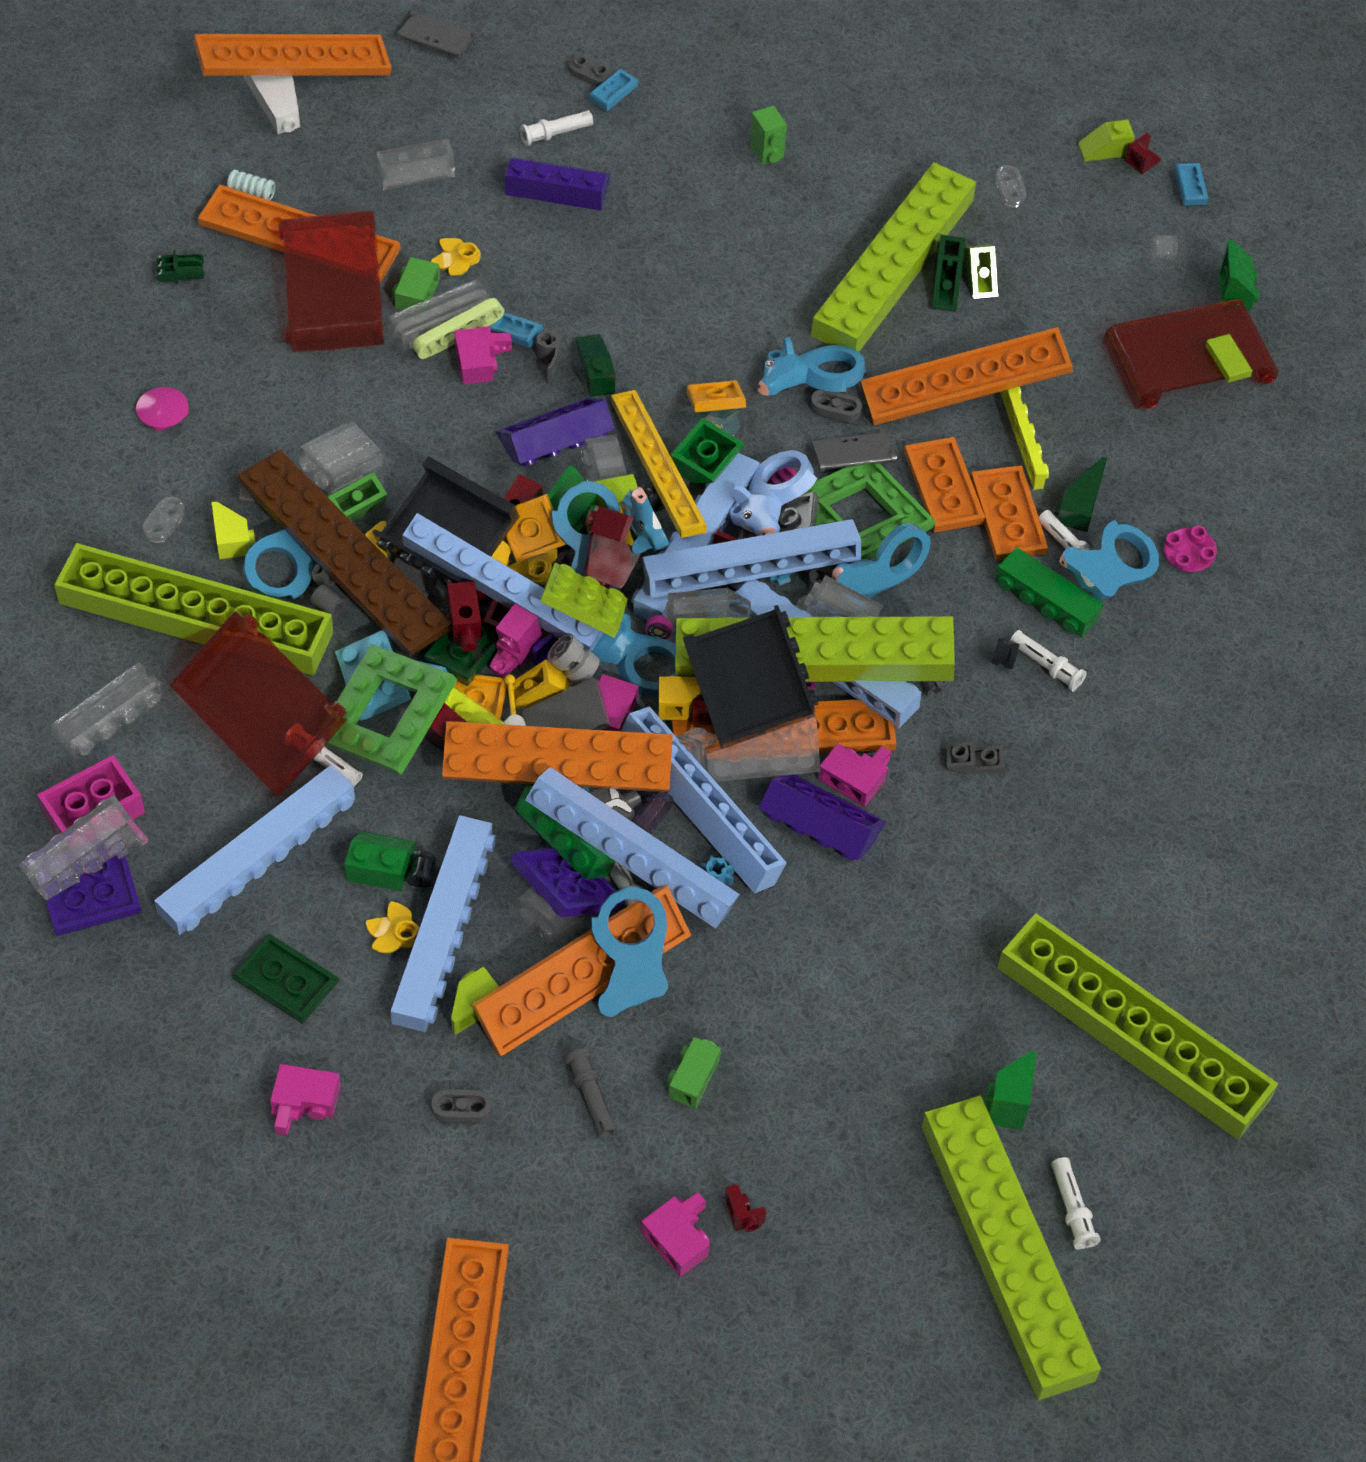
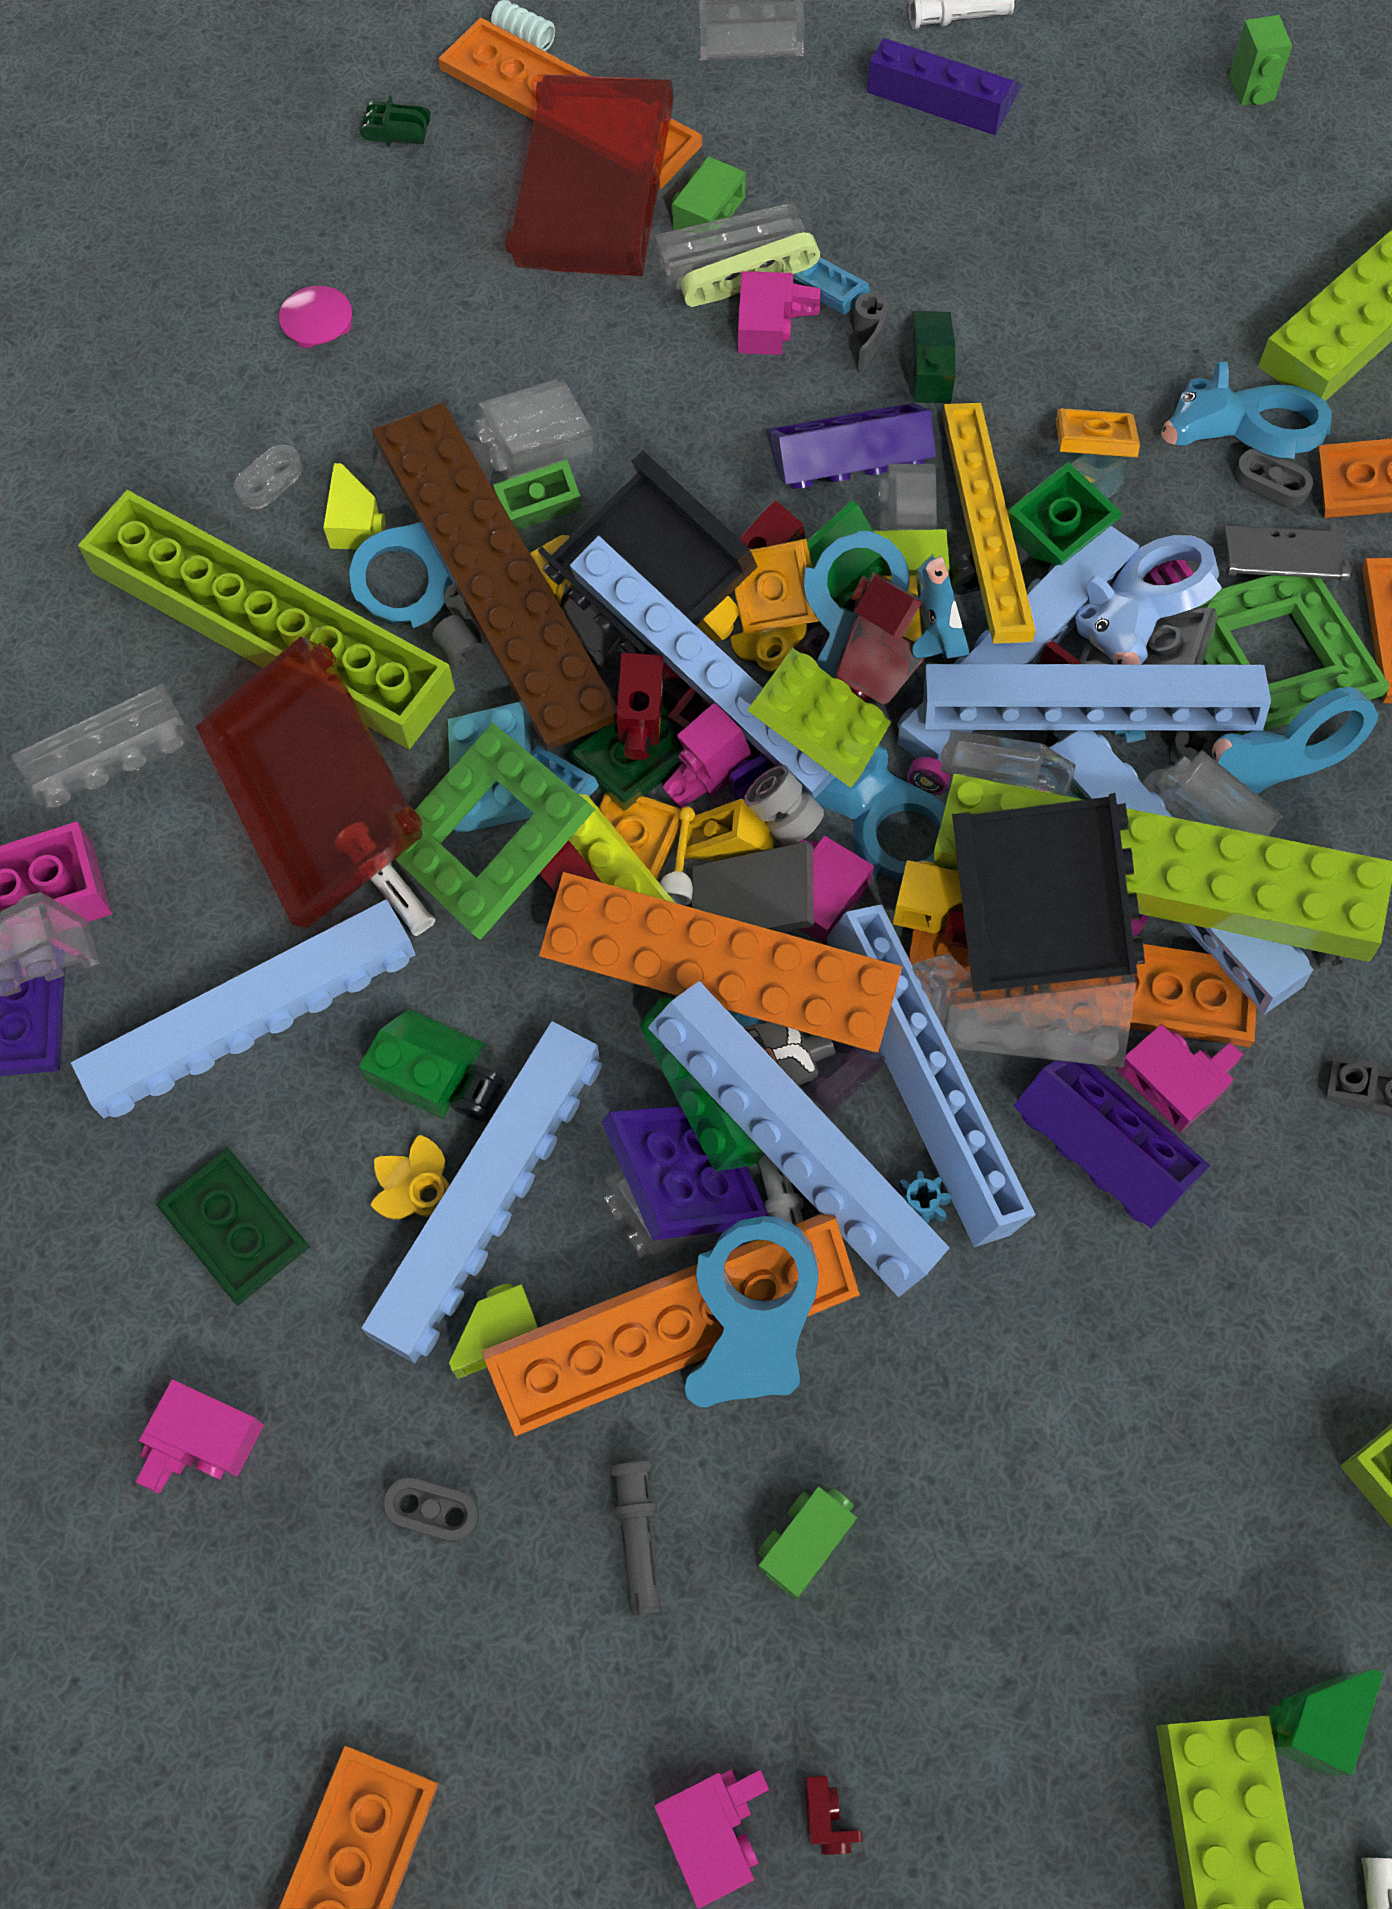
camera: 20 degrees right, 10 degrees up
(457, 256) = (777, 167): yellow plate -> none

